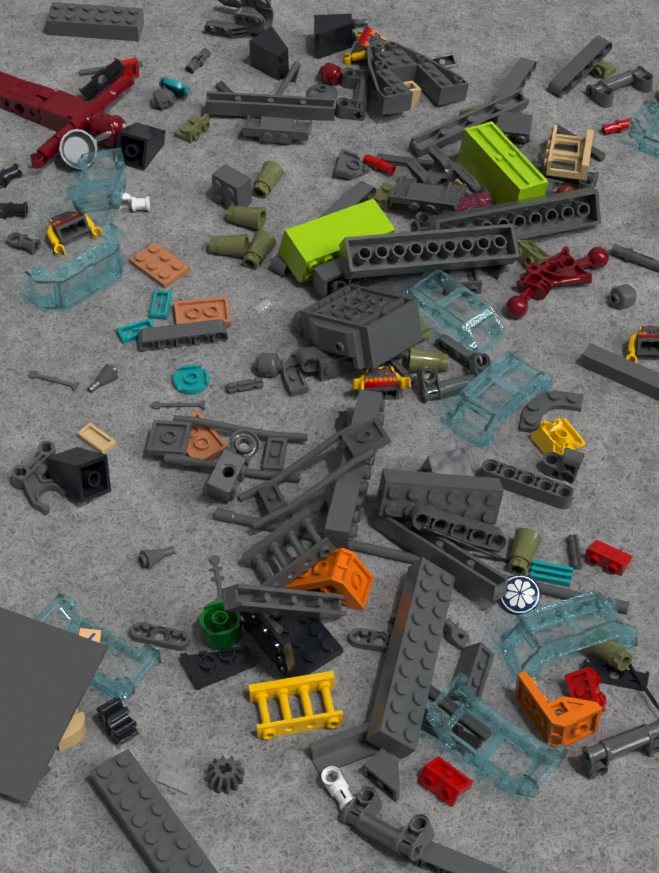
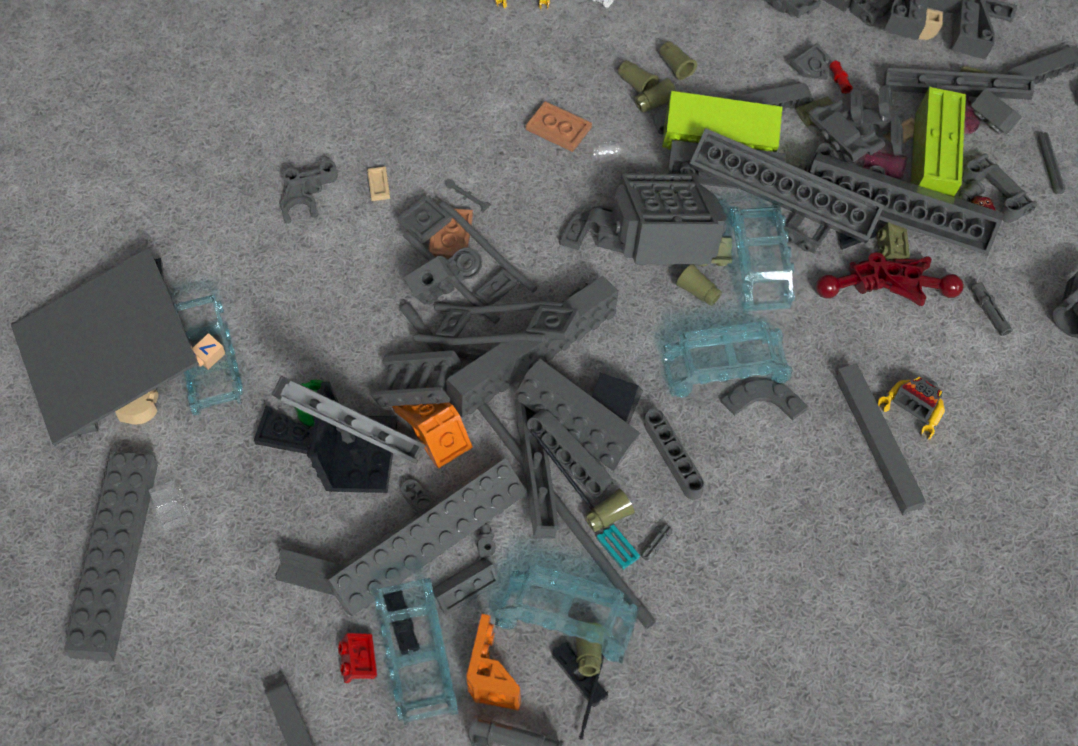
camera: 40 degrees right, 10 degrees up
(34, 374) = (385, 99): dark grey piece -> none
(80, 473) = (332, 205): black slope -> none
(84, 262) = (492, 24): clear light blue windscreen -> none
(106, 375) = (434, 133): dark grey cone -> none
(117, 721) = (169, 427): black gear -> none
(131, 336) = (494, 111): teal tile -> none
(151, 557) = (324, 311): dark grey cone -> none
(155, 629) = (268, 372): dark grey beam -> none
(159, 265) = (567, 61): nougat plate -> none
(159, 314) = (537, 99): teal tile -> none
(182, 335) = (524, 135): dark grey beam -> none
(191, 379) = (496, 179): teal tile -> none
(215, 560) = (369, 345): dark grey piece -> none
(225, 774) = (214, 528): dark grey gear -> none
(231, 187) = (684, 25): dark grey brick -> none
(245, 385) = (533, 211): dark grey axle -> none
(268, 364) = (565, 205): dark grey head -> none
(269, 175) = (726, 35): olive plant -> none
(300, 686) = (309, 490): yellow fence -> none
(335, 787) = (272, 602): white connector -> none
(382, 380) = (639, 280): torso -> none
(384, 773) = (318, 616): dark grey slope -> none
(398, 368) = (670, 281): dark grey axle -> none
(401, 161) = (865, 86): dark grey axle -> none
(410, 840) = (278, 684): dark grey piece -> none
(451, 386) = (678, 314): dark grey piece -> none
(452, 348) = (734, 293): dark grey beam -> none
(467, 720) = (424, 622): dark grey axle -> none
(522, 594) = (570, 547): dish -> none
(556, 436) = (744, 430): yellow slope -> none
(561, 466) = (721, 462): dark grey piece -> none
(580, 159) = (1027, 179): tan window -> none
(585, 686) = (538, 670): red bracket -> none
(608, 557) = (679, 567): red bracket -> none
(622, 296) = (937, 337): dark grey head -> none

